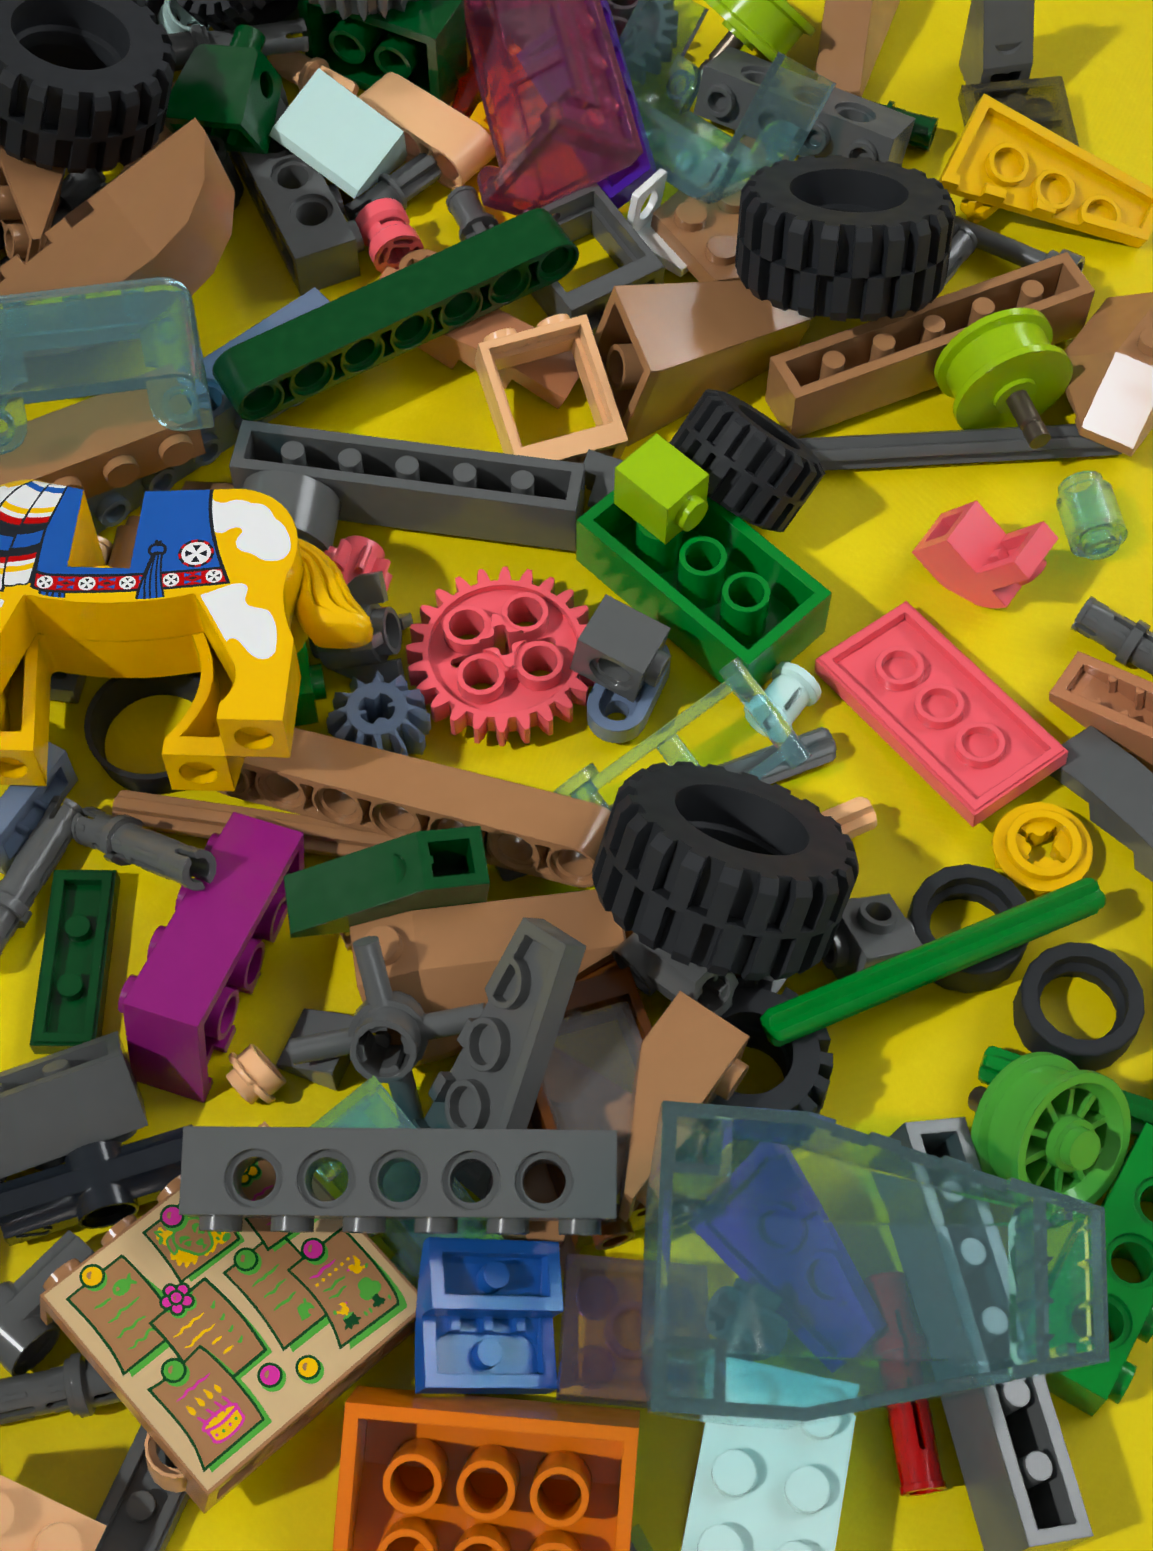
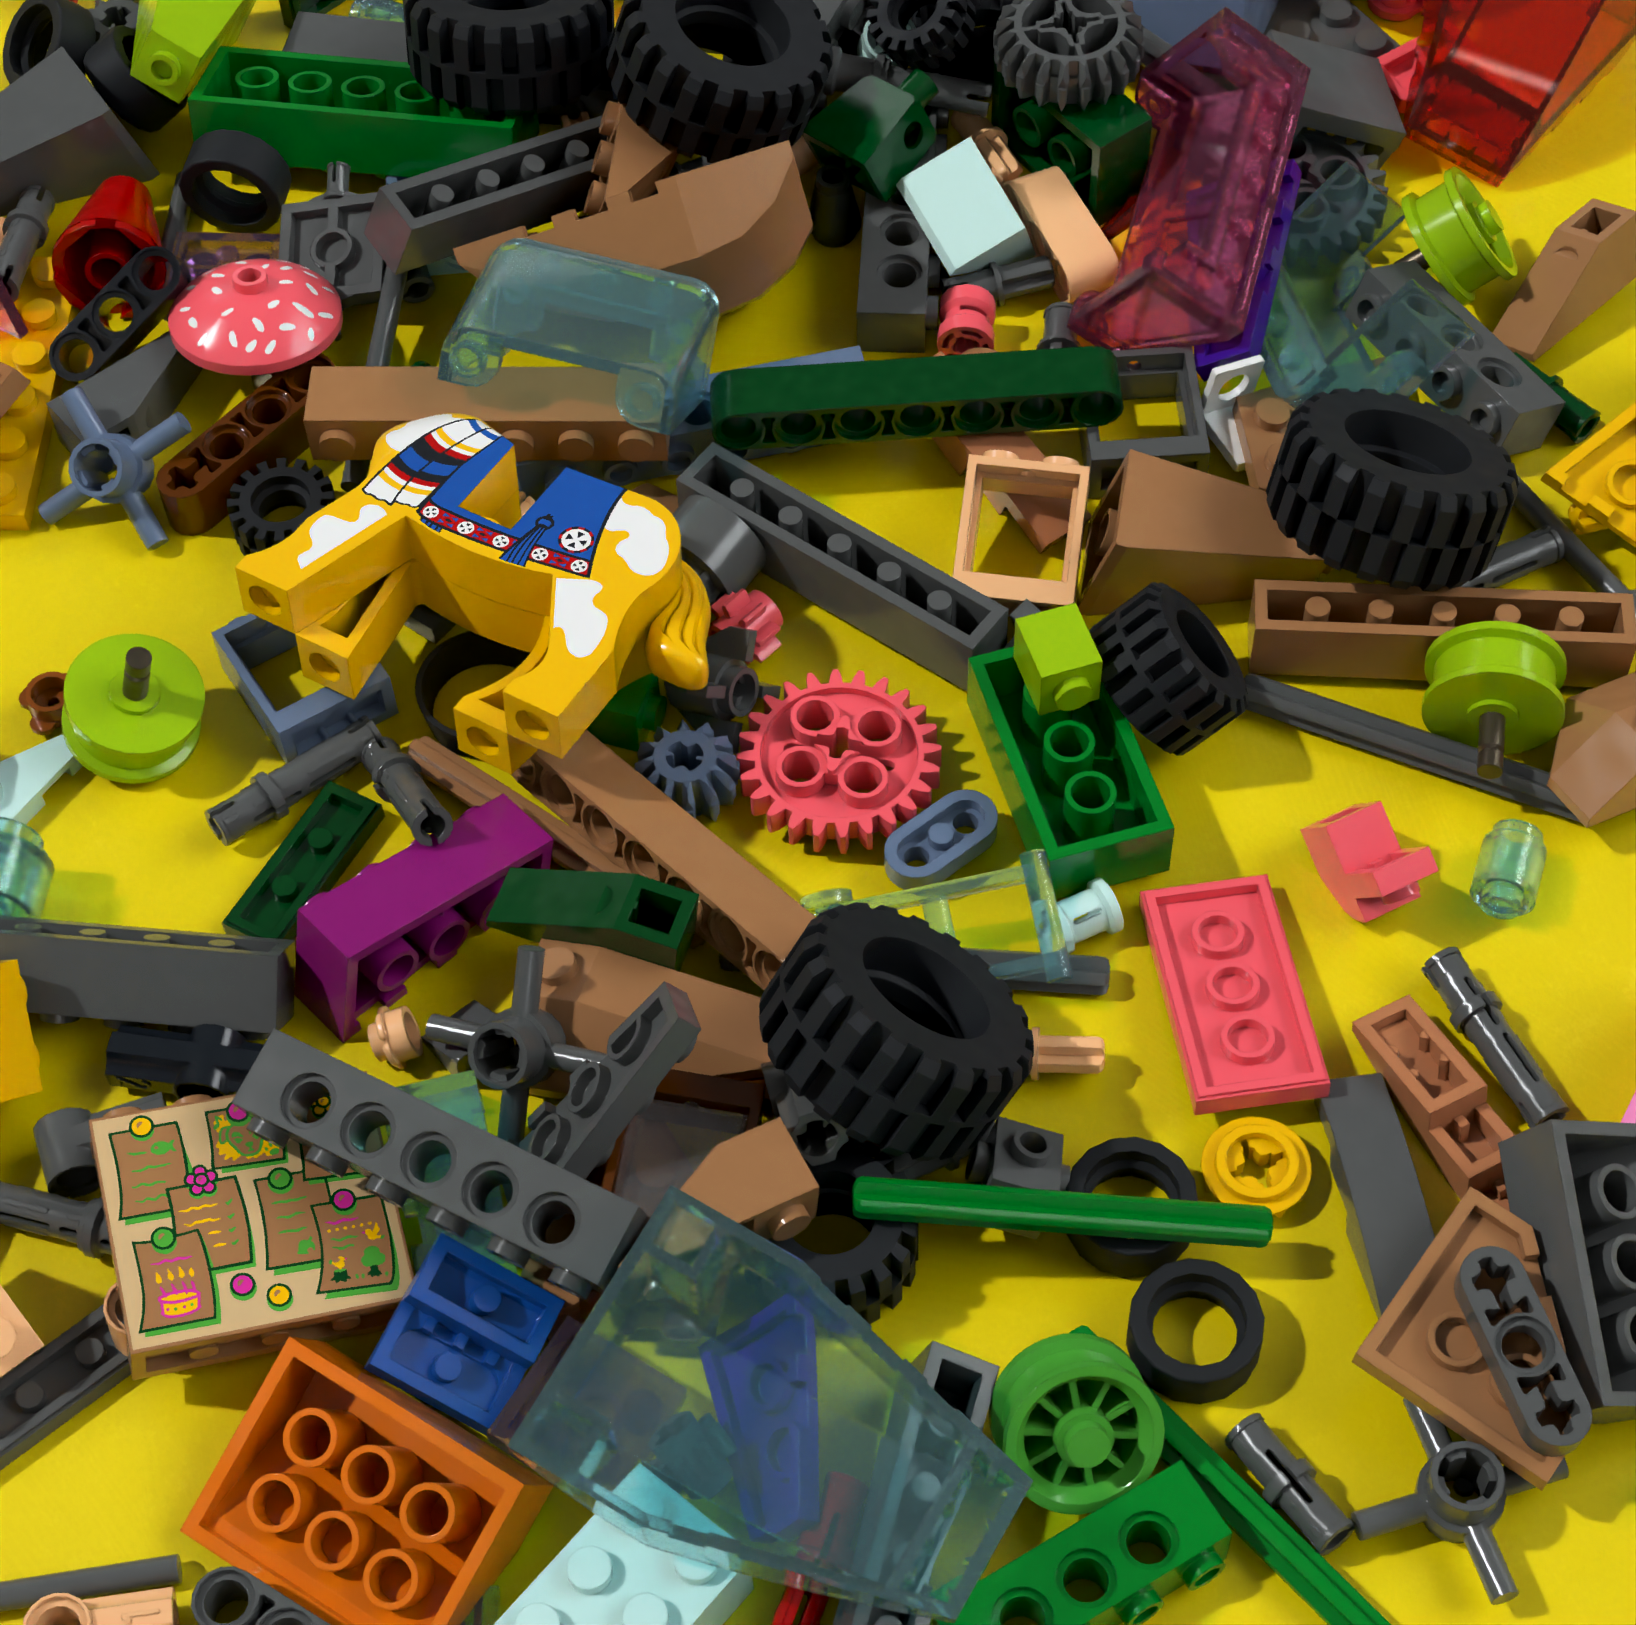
camera: 30 degrees right, 5 degrees down
(621, 649) = (940, 796): dark grey brick -> none

